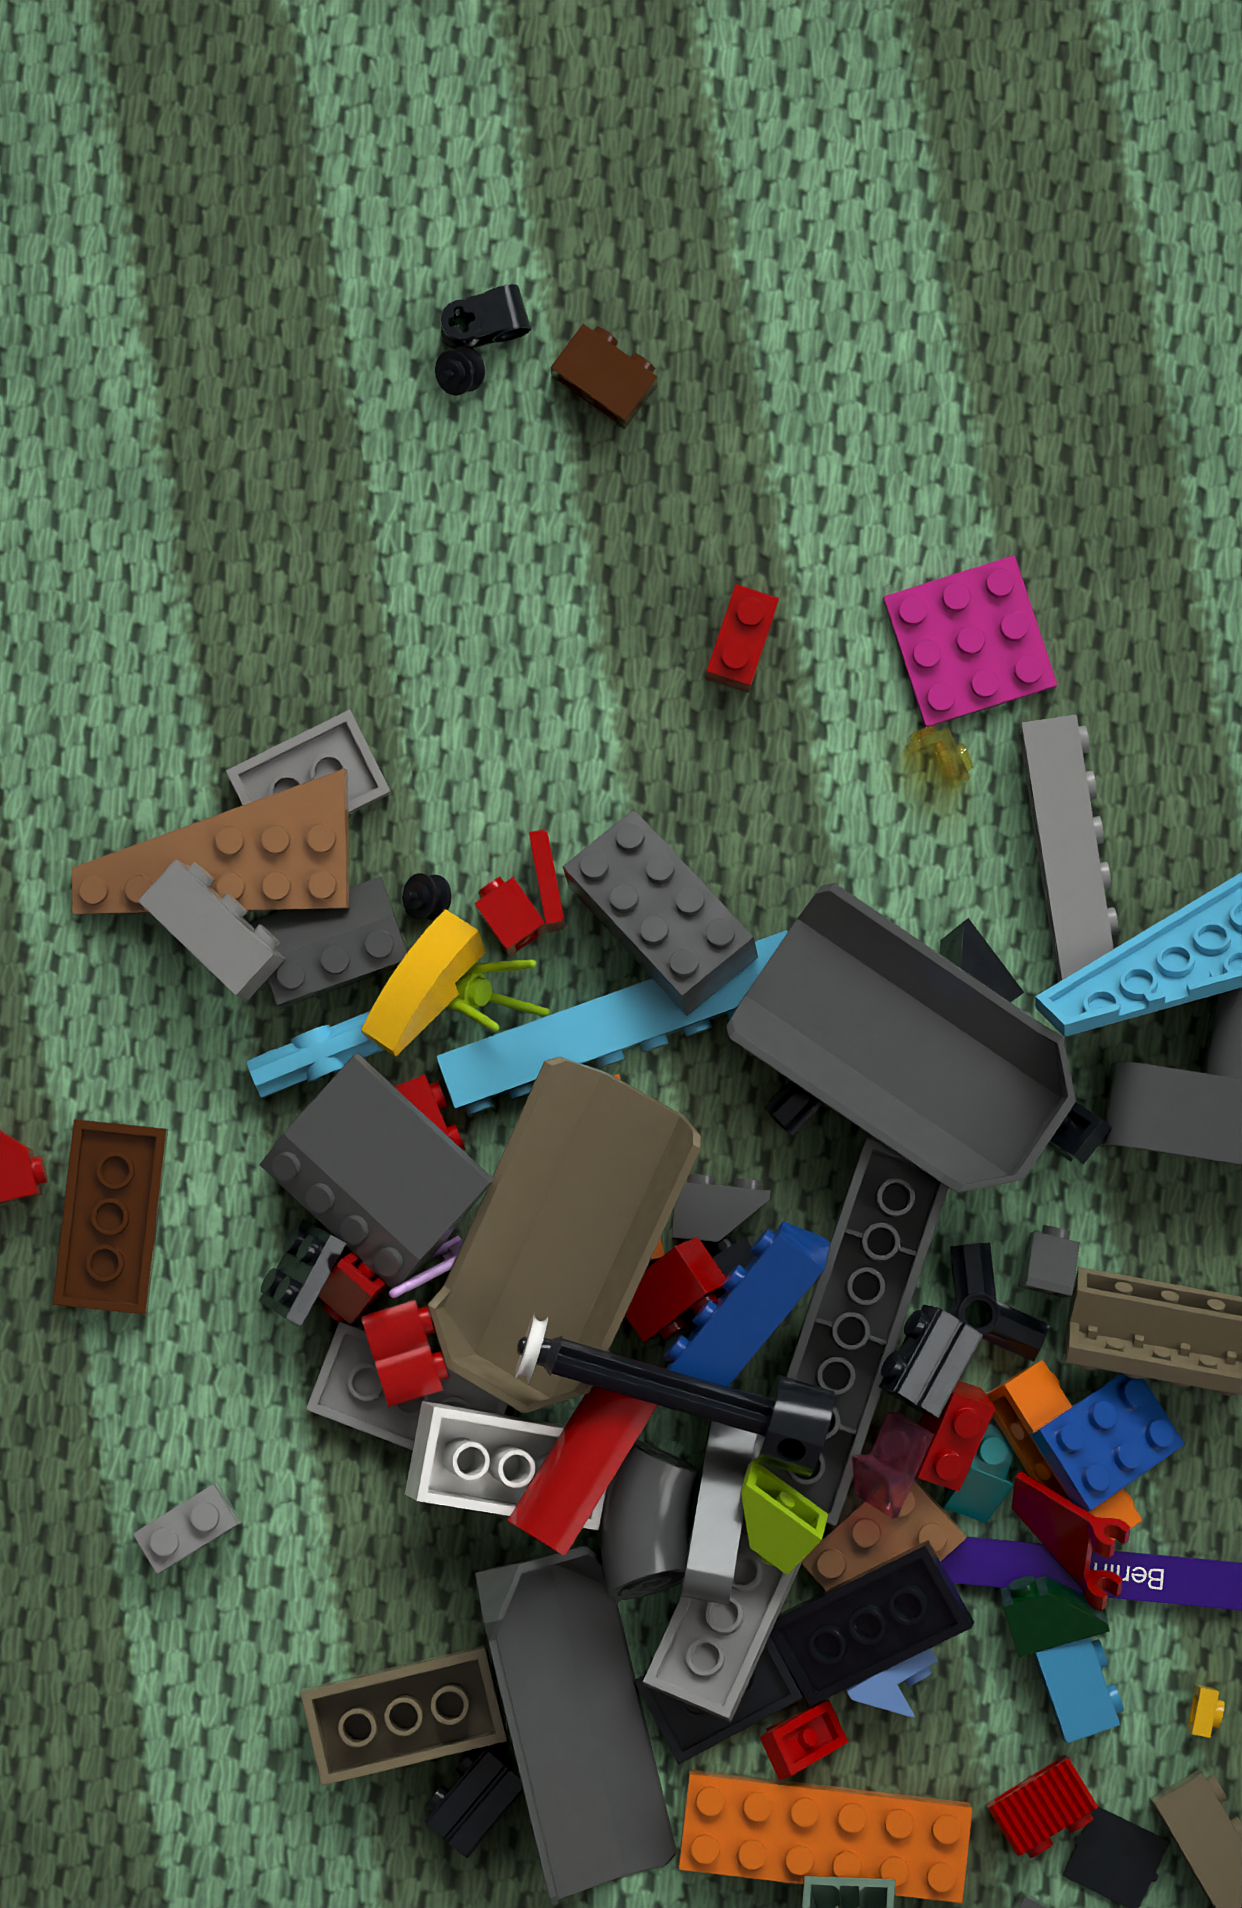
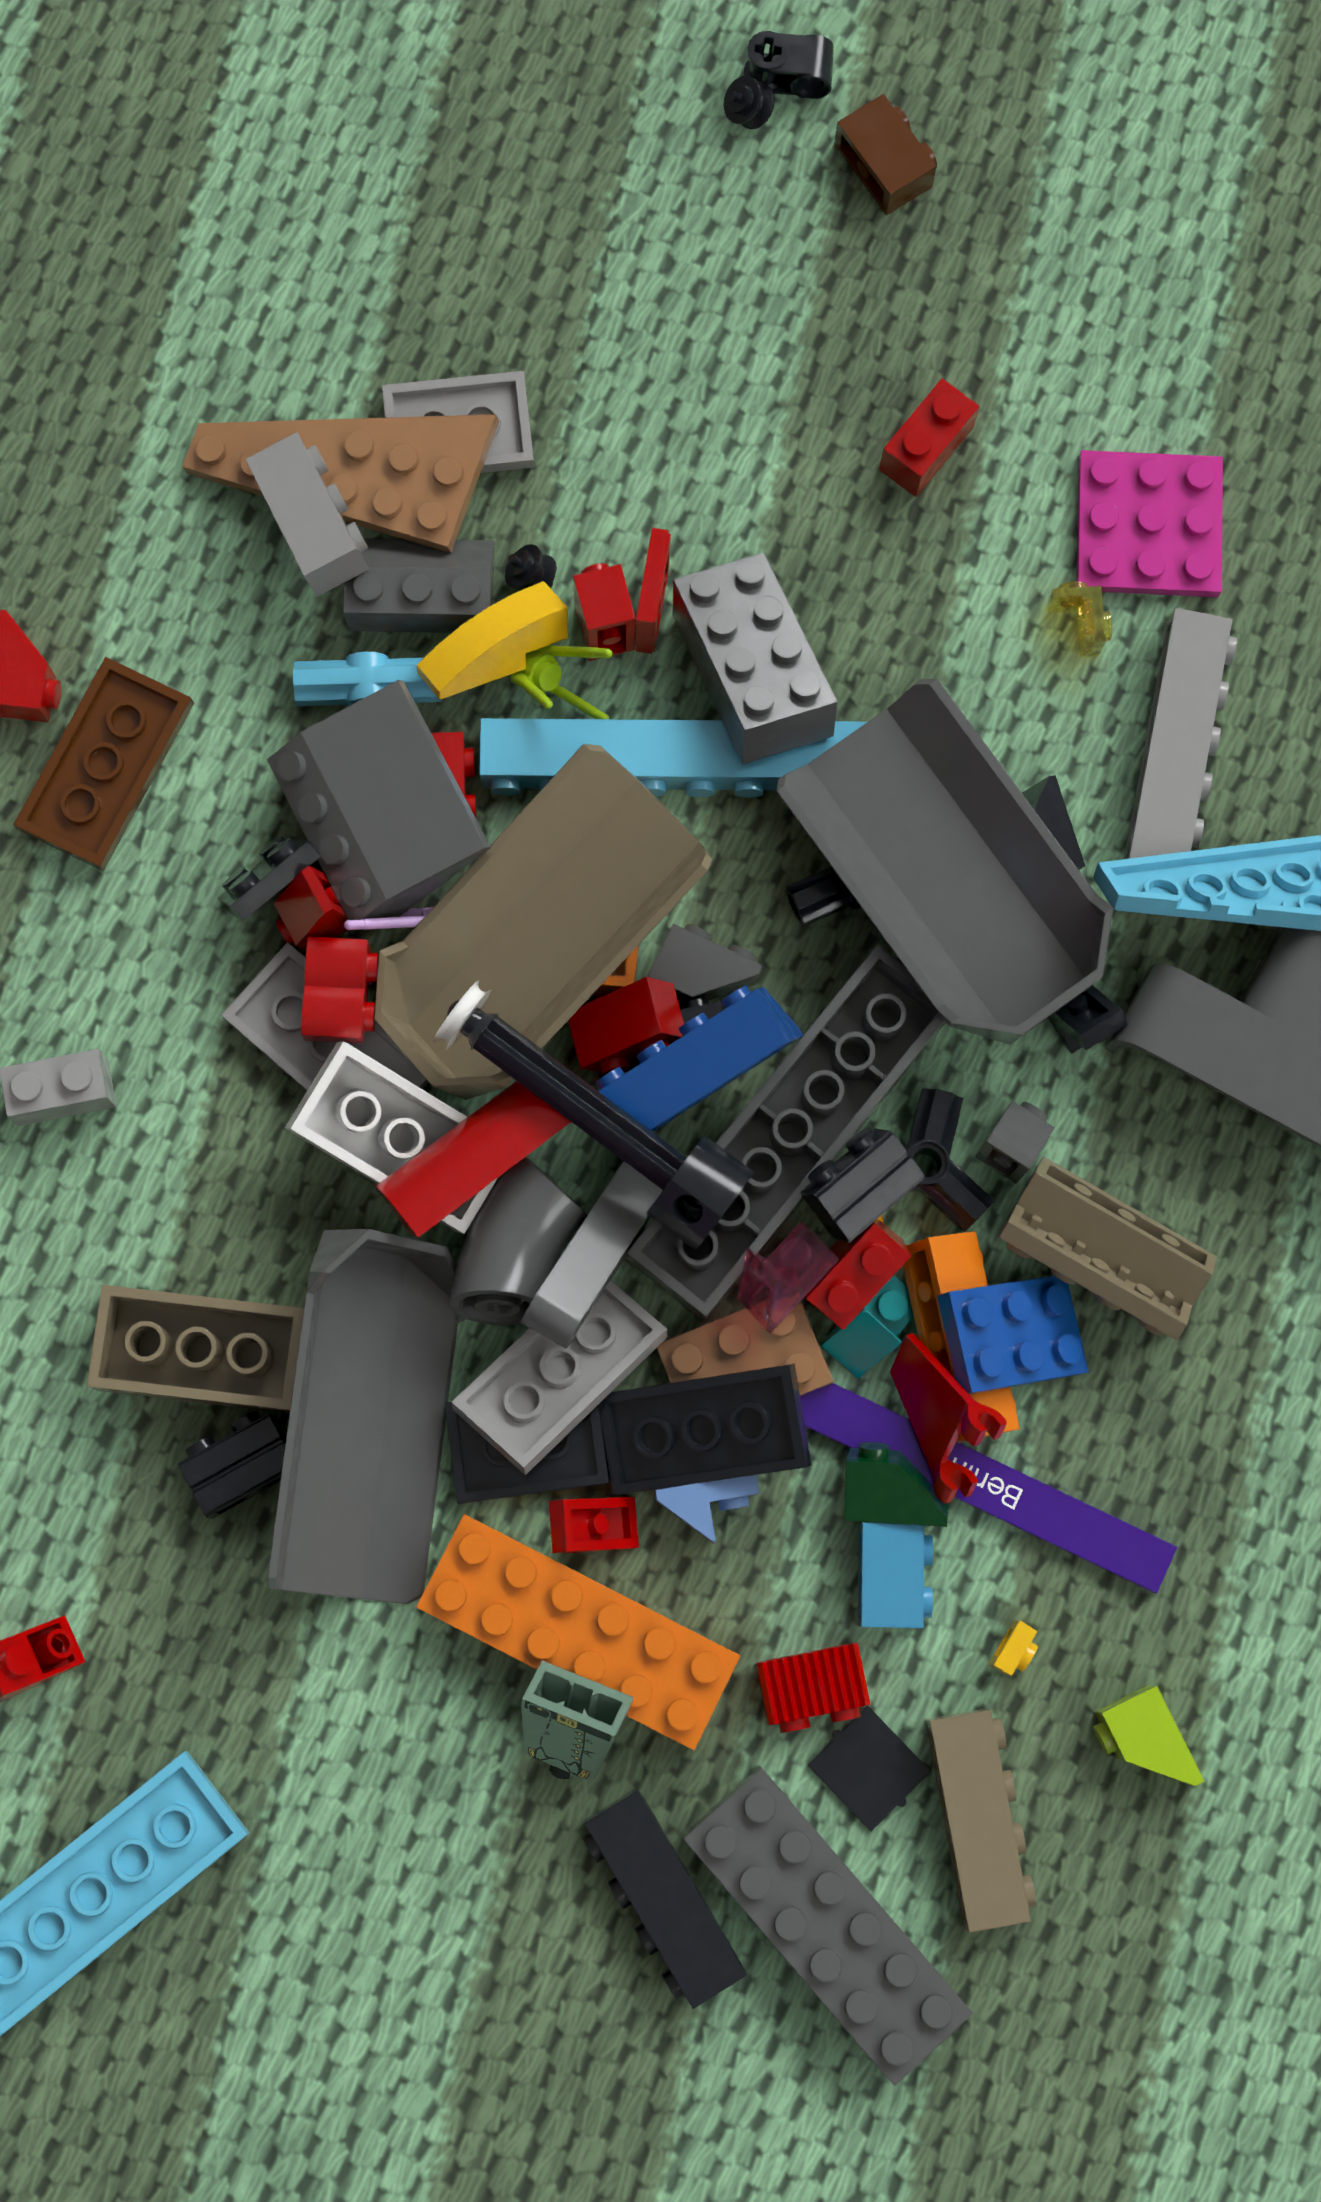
camera: 15 degrees right, 5 degrees down
(779, 1519) = (649, 1284): lime slope -> none

